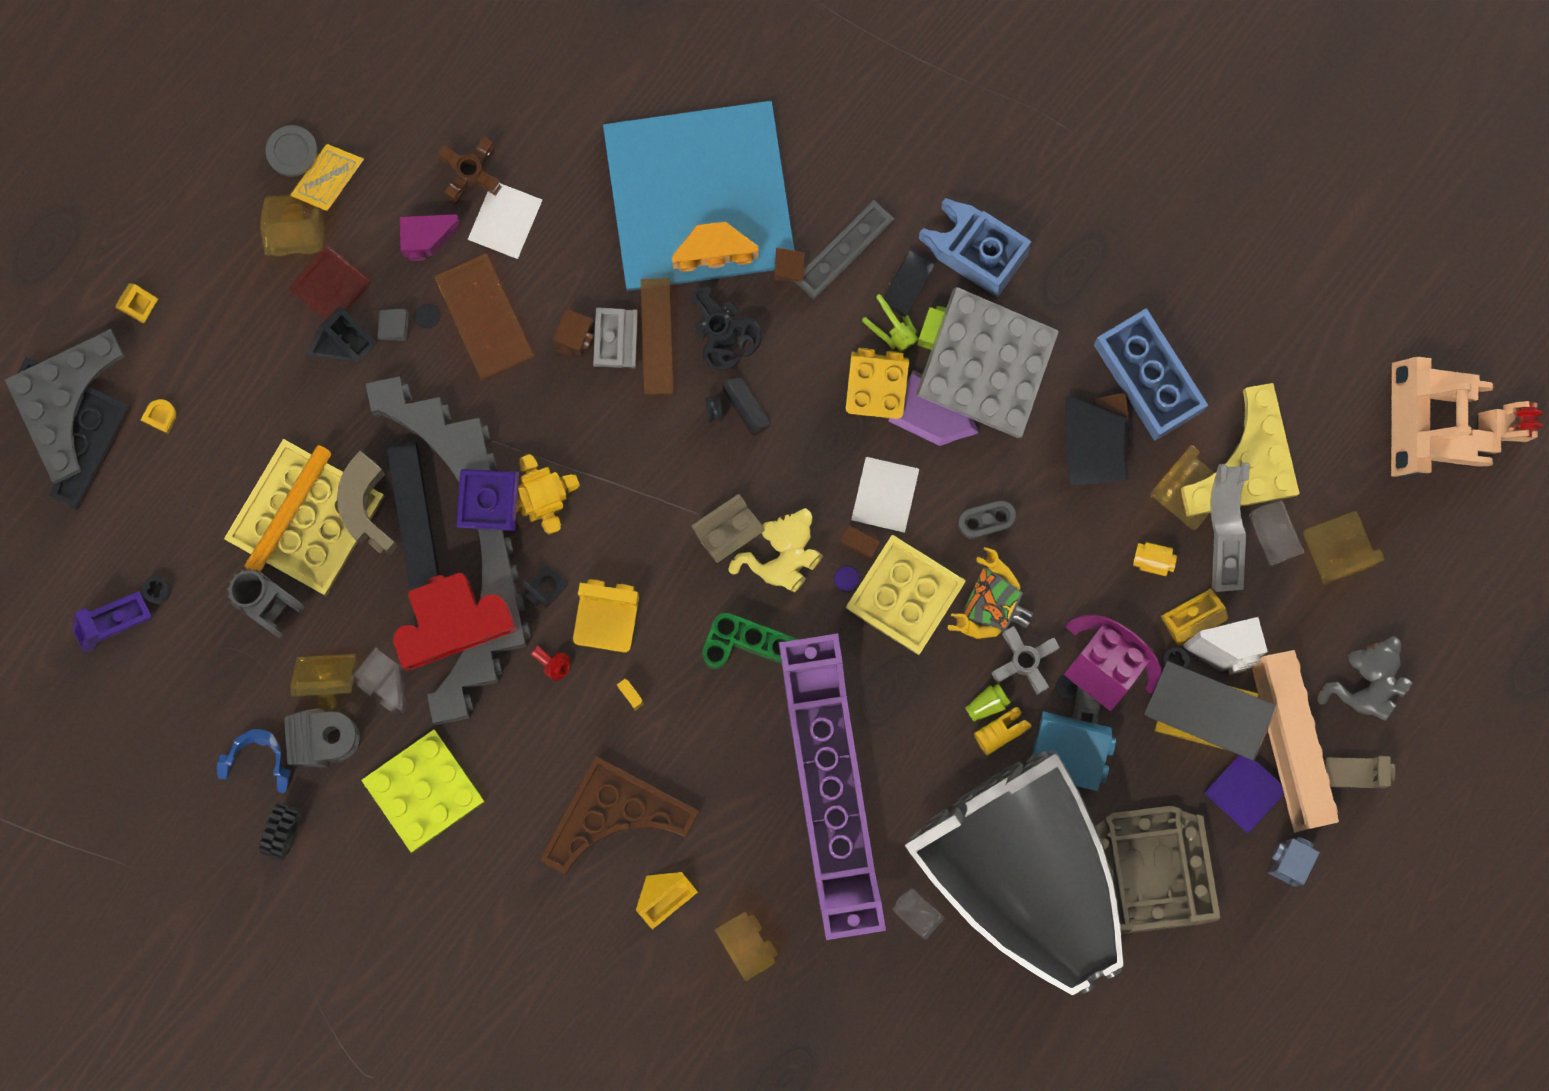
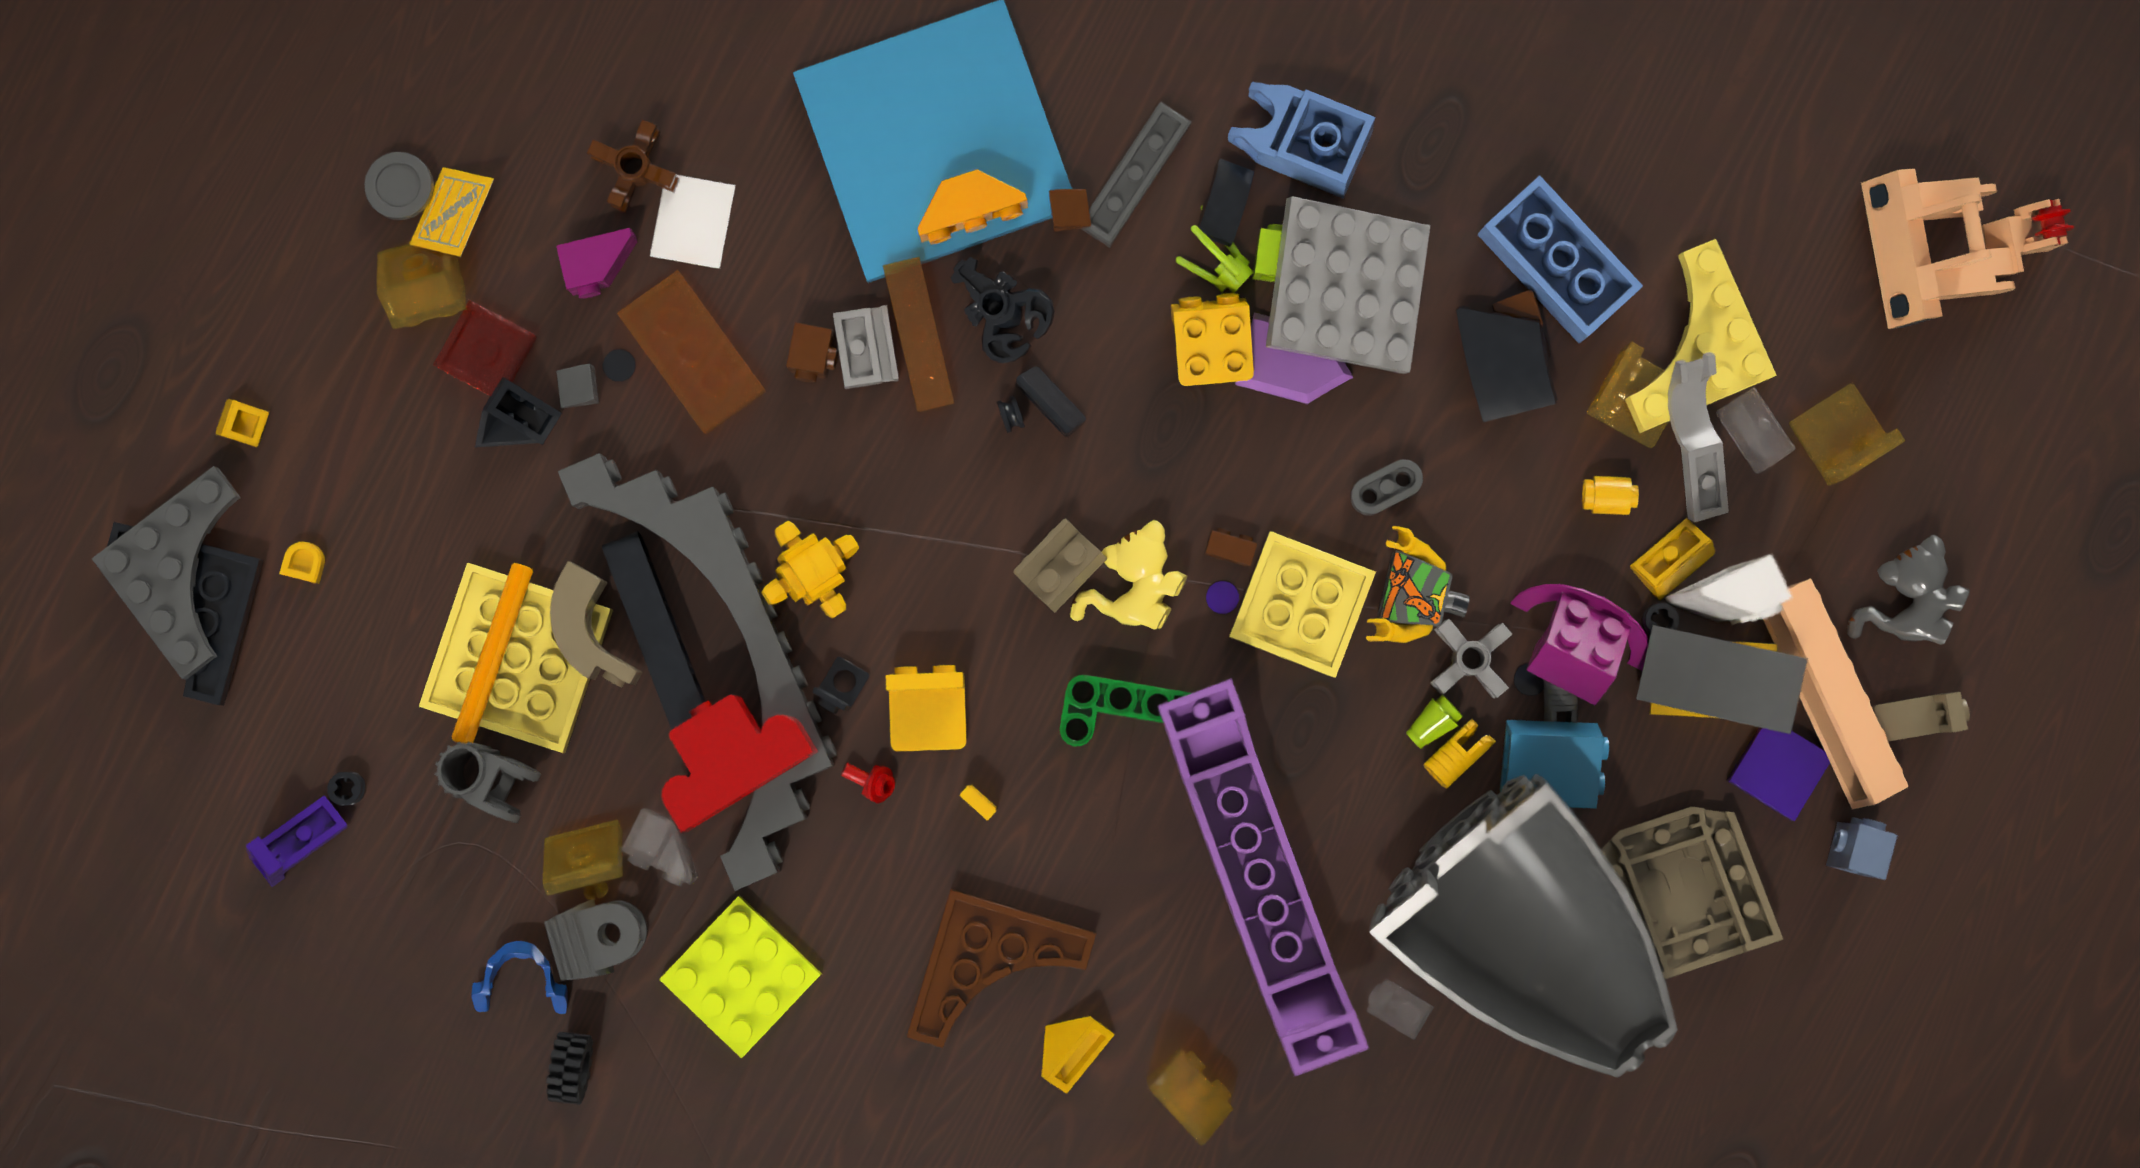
camera: 10 degrees left, 5 degrees up
(487, 499) = (745, 591): dark purple tile -> none
(885, 494) = (1250, 479): white sticker -> none

